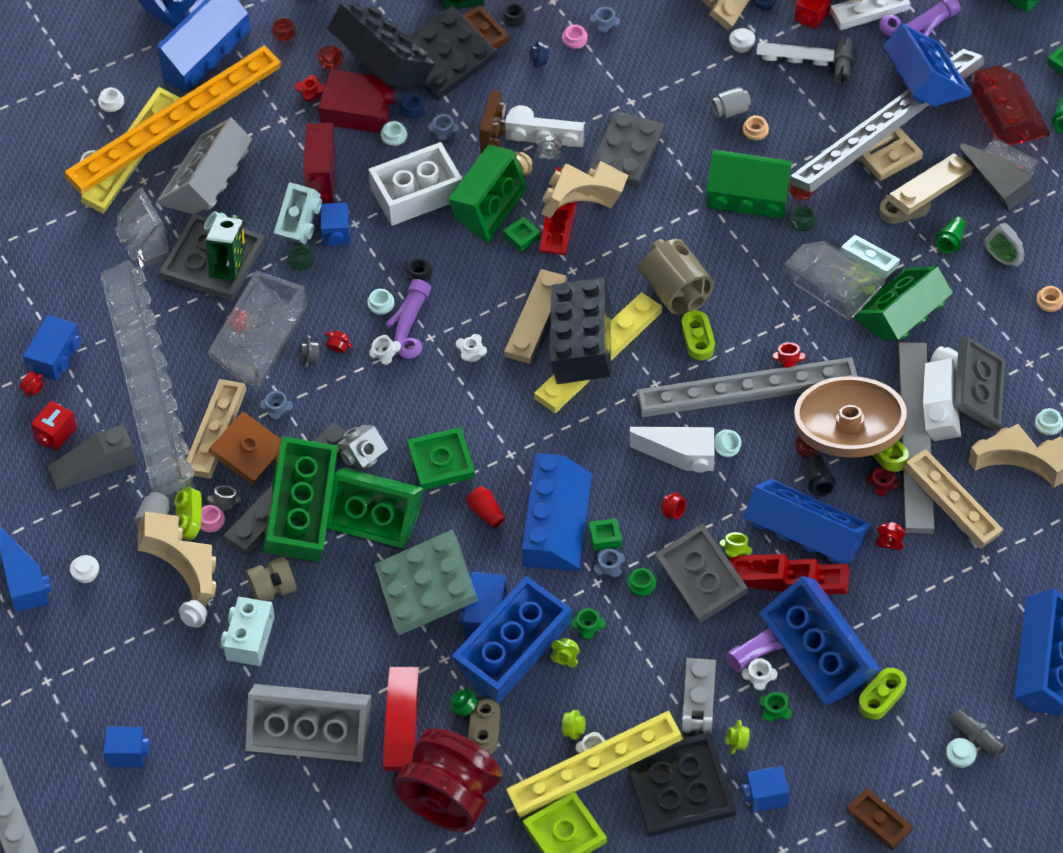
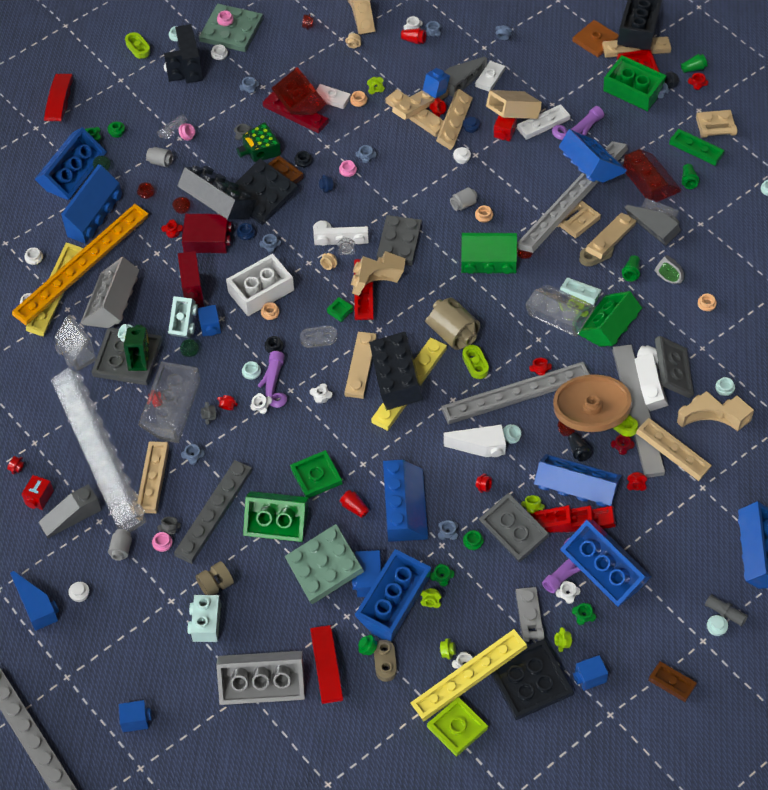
camera: 10 degrees left, 0 degrees up
(52, 347) = (25, 436): blue brick -> none
(188, 509) = (145, 540): lime plate -> none
(193, 613) = (163, 612): white plate -> none
(194, 561) = (132, 561): tan arch -> none
(246, 448) = (178, 487): dark orange plate -> none
(300, 499) = (224, 518): green brick -> none
(361, 446) = (259, 474): light grey brick -> none
(393, 133) = (236, 252): light aqua plate -> none
(423, 217) = (272, 308): none -> light nougat plate
(447, 780) = (370, 703): dark red piece -> none
(484, 268) = (318, 336): none -> clear plate
(488, 192) = (311, 283): green slope -> none
(492, 122) = (305, 238): reddish brown plate -> none
(605, 534) = (441, 510): green plate -> none
(795, 53) = (500, 160): white plate -> none
(802, 218) = (529, 271): clear green plate -> none
(843, 60) = (533, 160): dark grey pin -> none
(880, 694) = (655, 594): lime plate -> none

